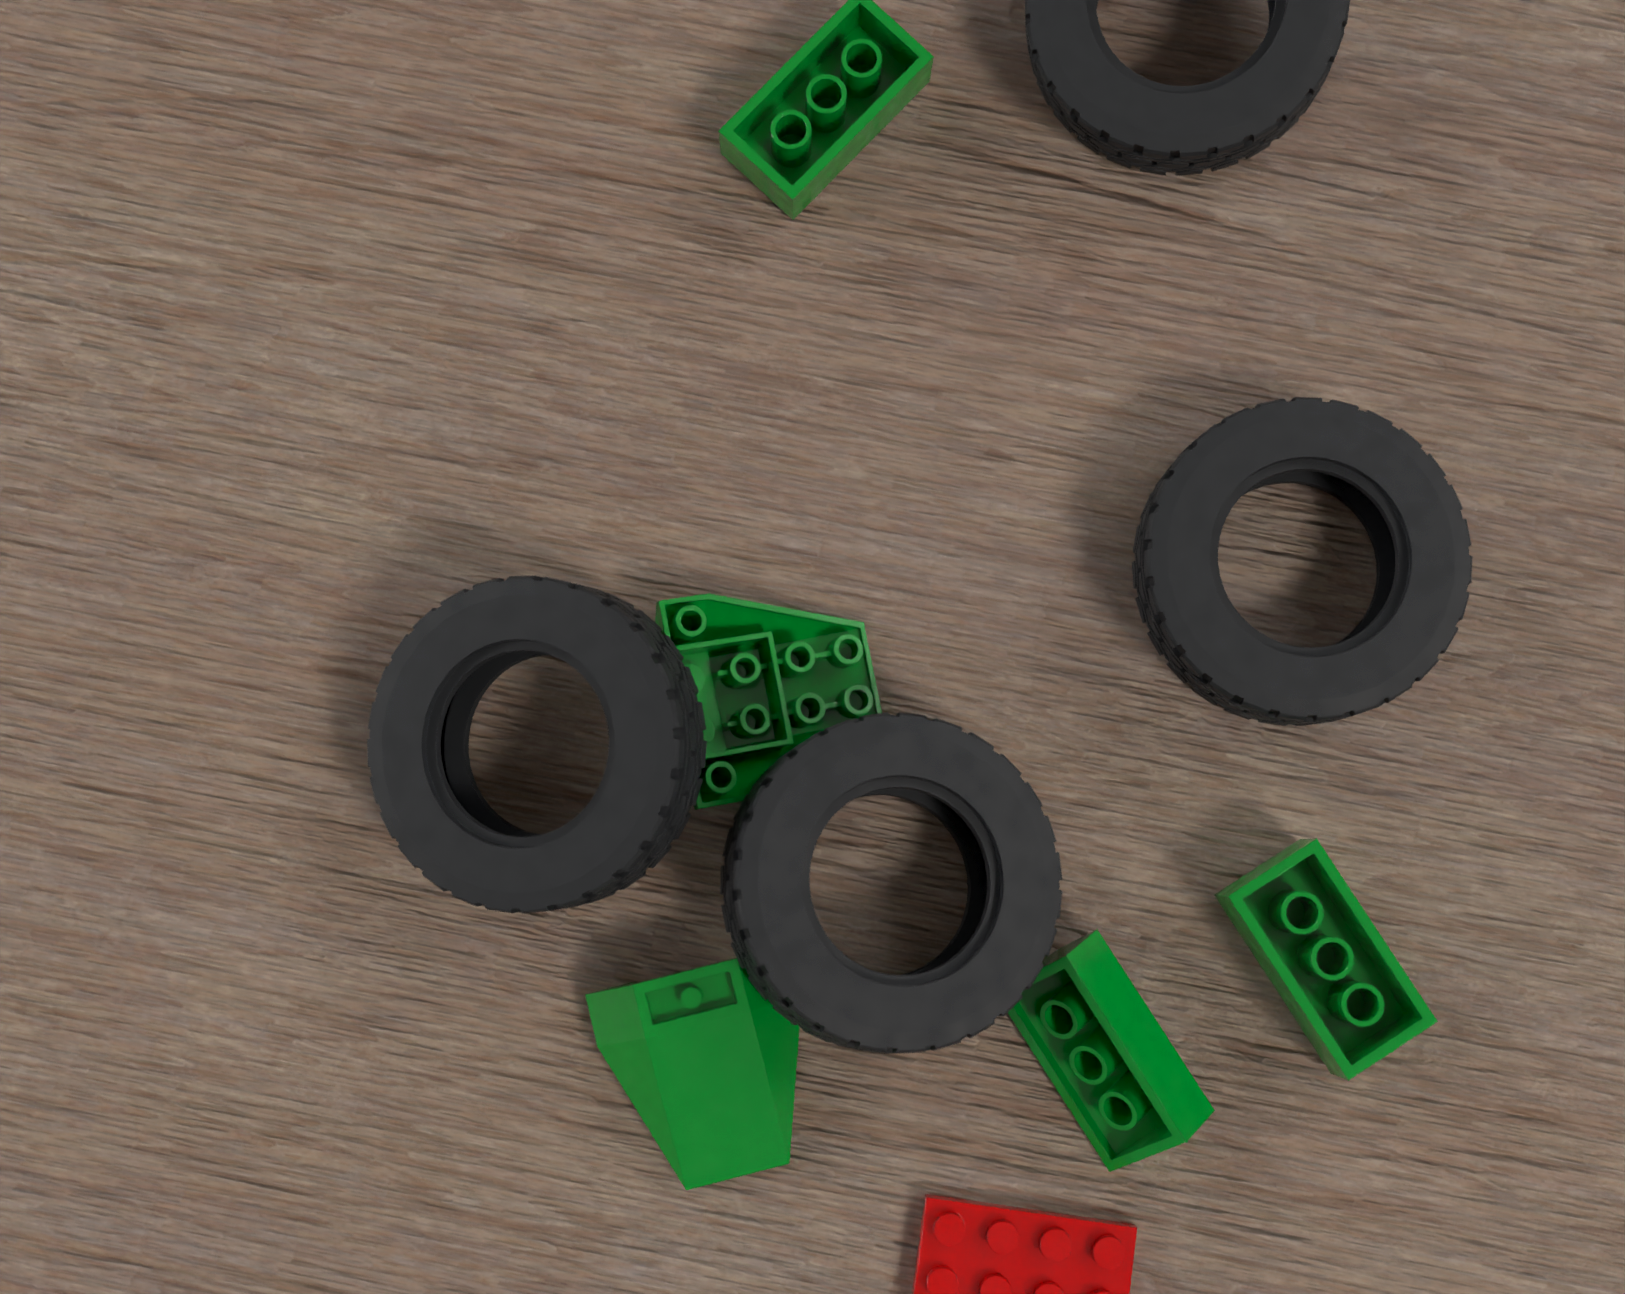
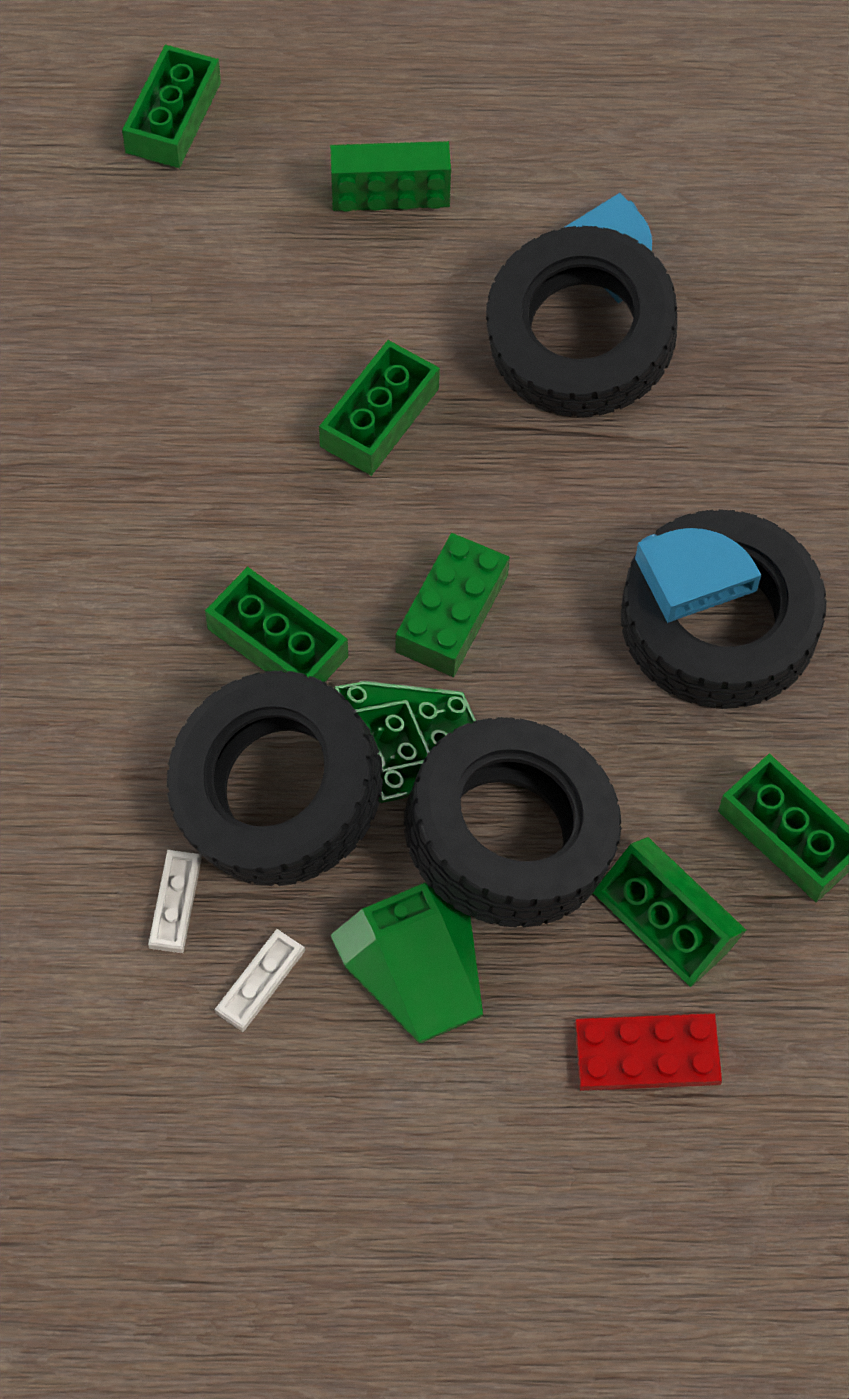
camera: 10 degrees left, 20 degrees down
(361, 897) = (175, 901): none -> white tile
(469, 1042) = (259, 980): none -> white tile
(590, 479) = (275, 629): none -> green brick
(875, 474) = (452, 604): none -> green brick
(1269, 513) = (695, 570): none -> dark azure brick

